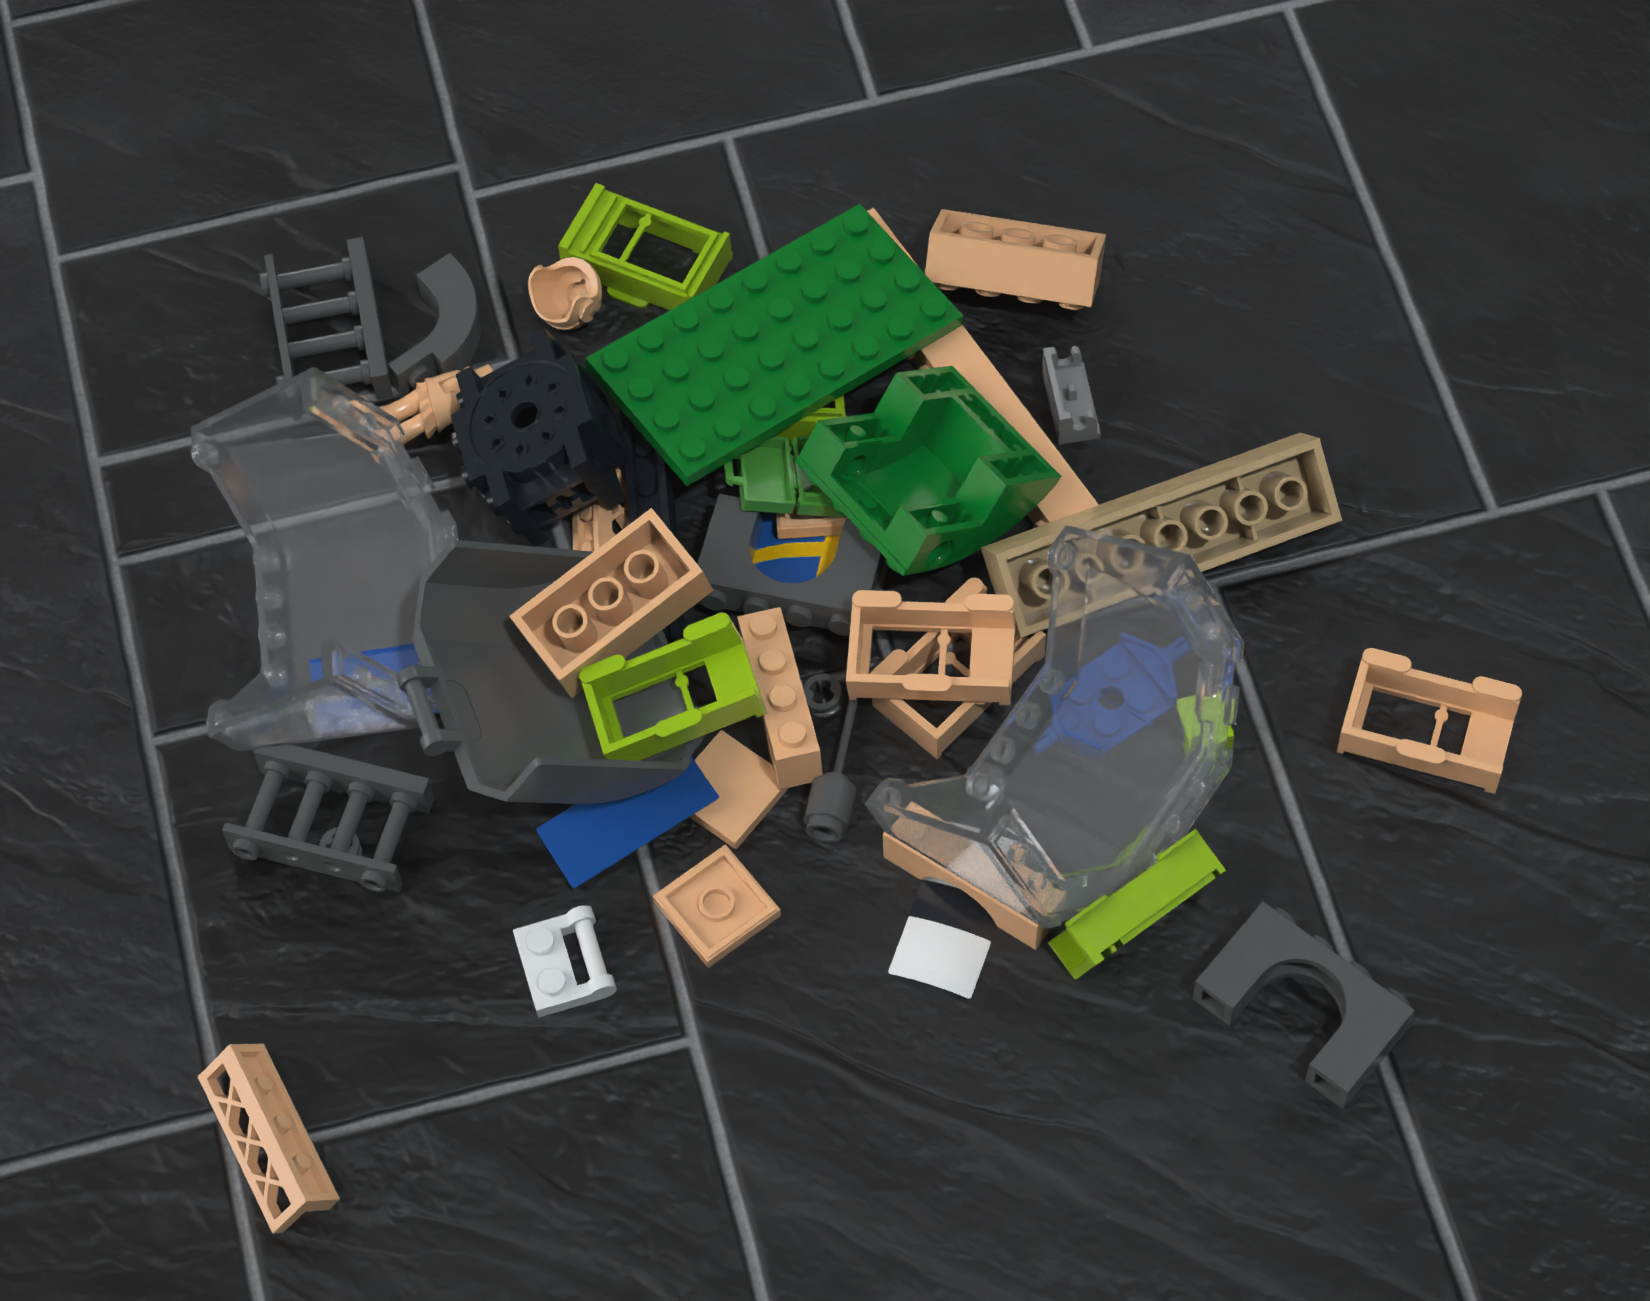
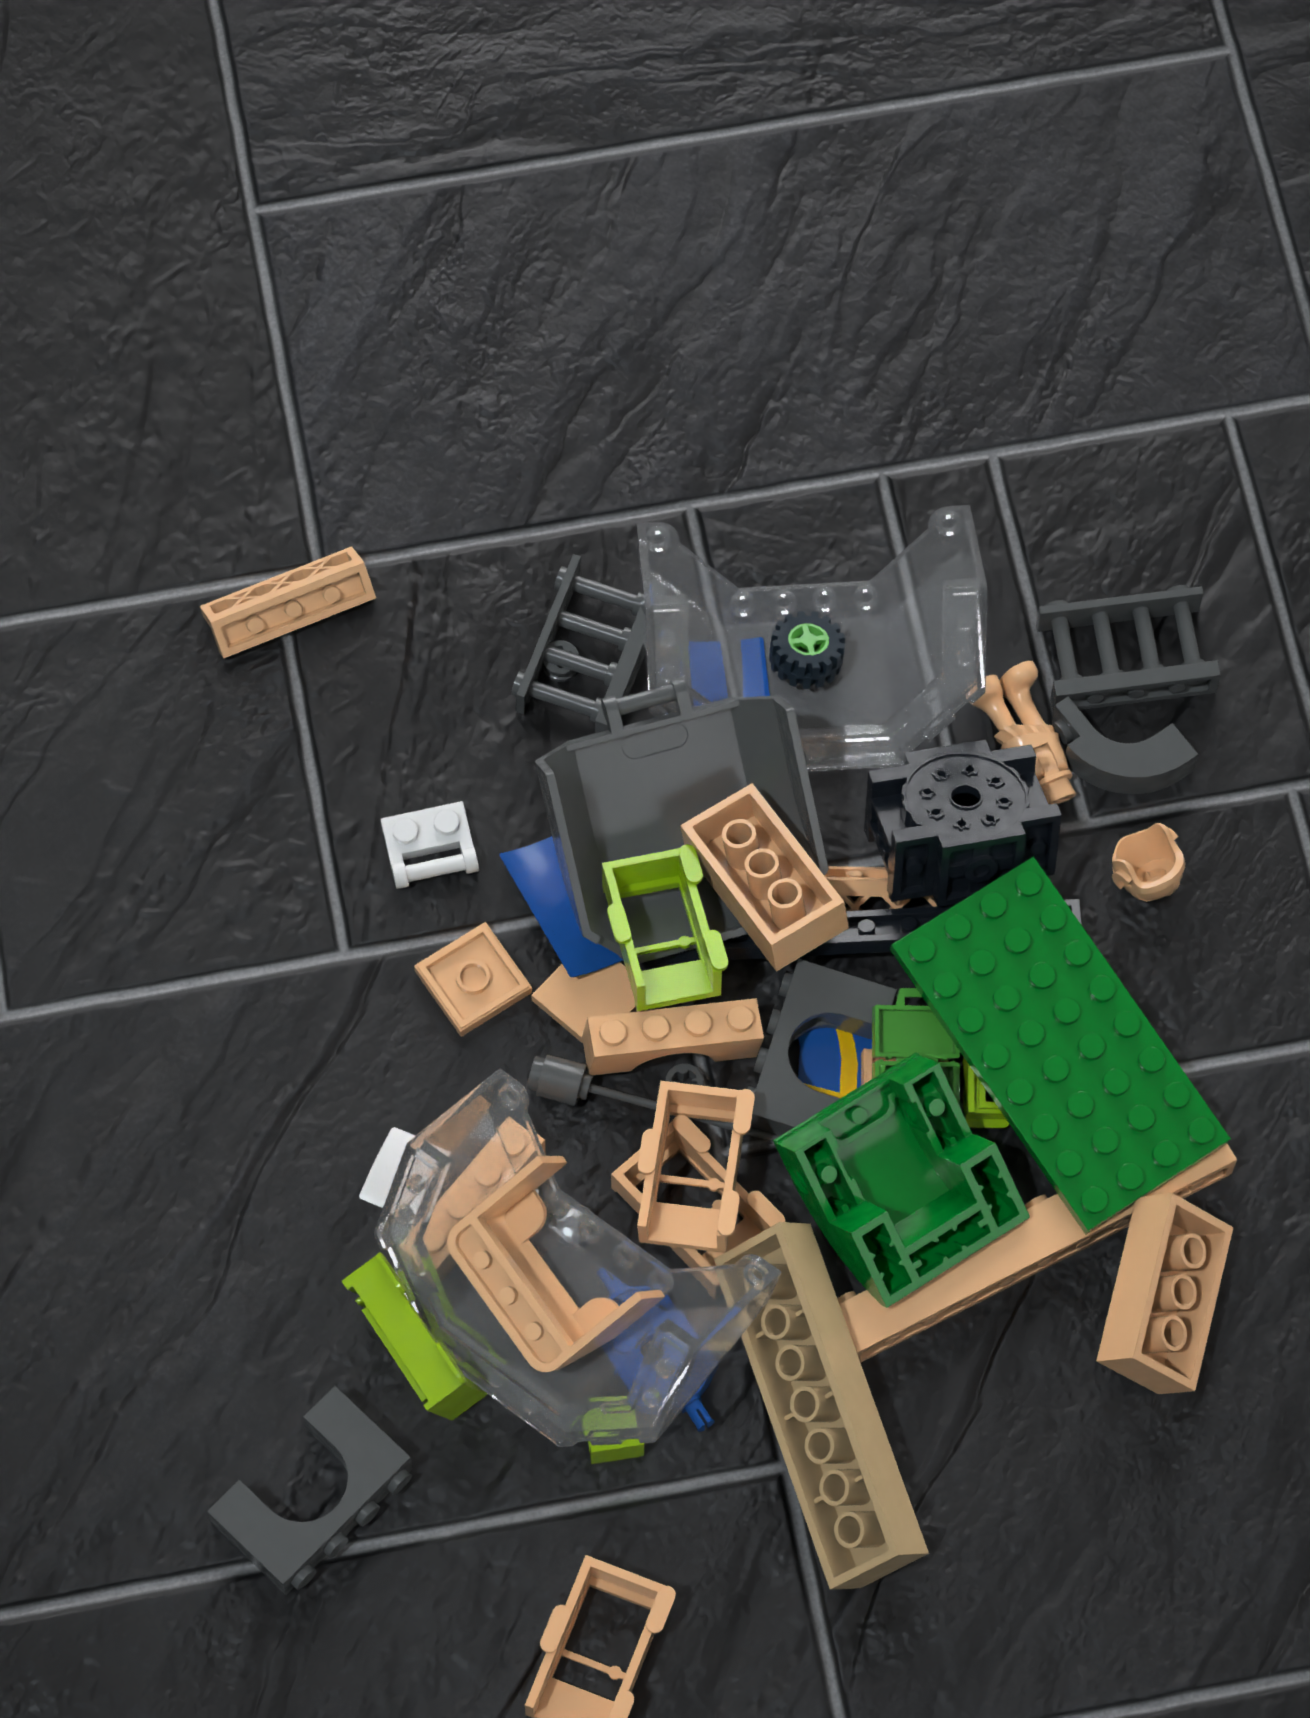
camera: 90 degrees right, 5 degrees up
(316, 602) = (811, 634): none -> black wheel
(632, 283) = (1229, 892): lime piece -> none
(1069, 397) = (1008, 1343): light grey hinge -> none
(1123, 763) = (519, 1285): none -> light nougat windscreen

